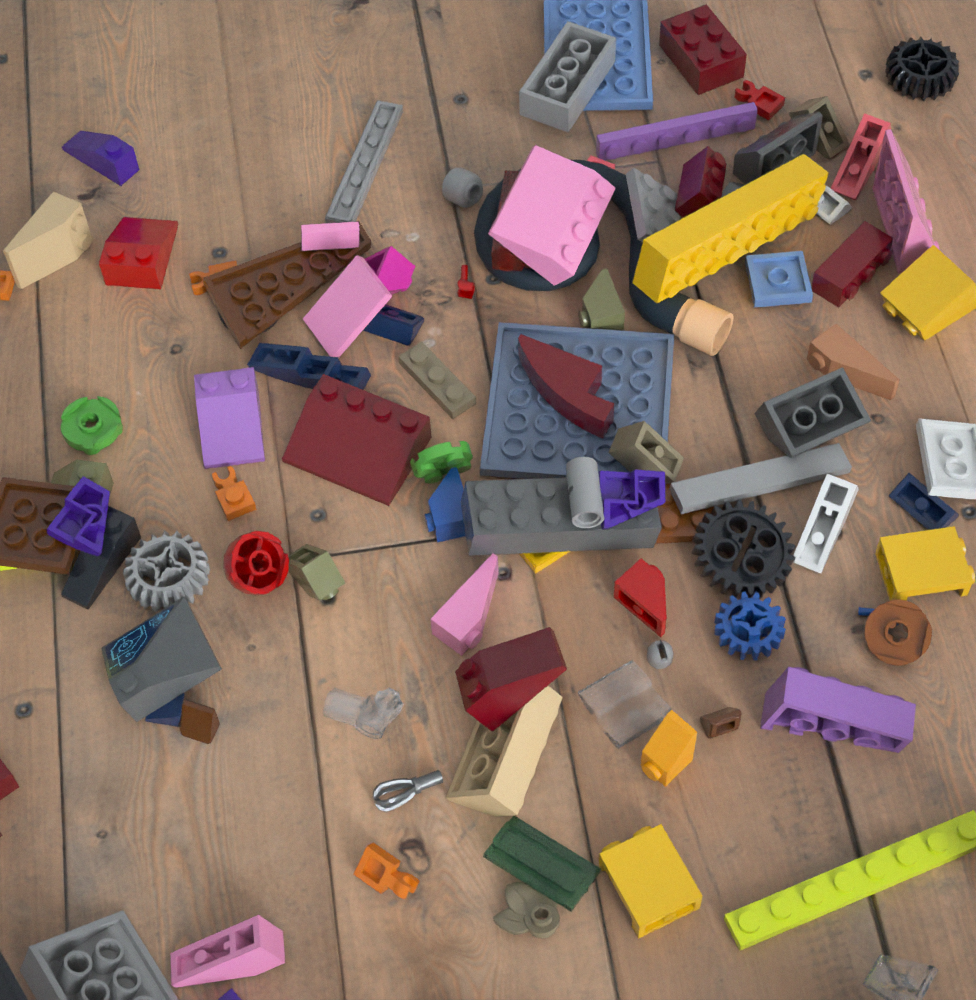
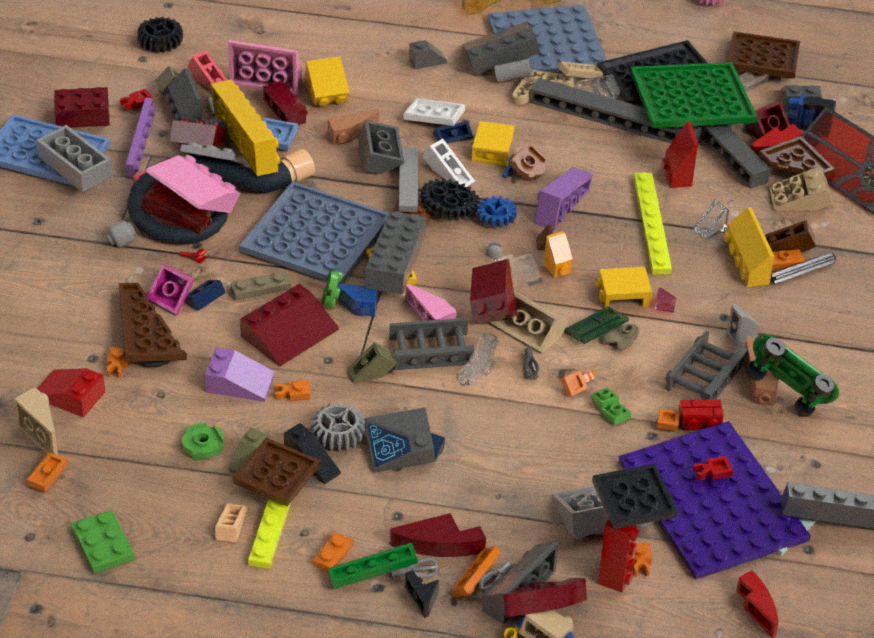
camera: 75 degrees left, 15 degrees down
(82, 518) = (290, 440): dark purple slope -> none
(198, 722) = (450, 433): reddish brown slope -> none
(229, 954) = (600, 448): bright pink slope -> none
(256, 563) = (357, 384): red cylinder -> none
(302, 368) = (218, 336): dark blue slope -> none
(330, 236) = (131, 291): bright pink tile -> none
(347, 307) = (192, 298): bright pink tile -> none
(352, 943) = (609, 405): none -> bright green slope
(364, 163) = (65, 274): light grey tile -> none
(372, 657) = (430, 357): none -> dark grey fence
(567, 384) = (307, 226): dark red slope -> none
(584, 492) = (399, 225): light grey pin -> none
(602, 305) = (253, 203): olive slope -> none
(630, 494) = (406, 215): dark purple slope -> none
(644, 449) = (371, 209): dark tan slope -> none
(644, 595) = (459, 242): red slope -> none
(652, 959) = (665, 301): none -> clear pink slope

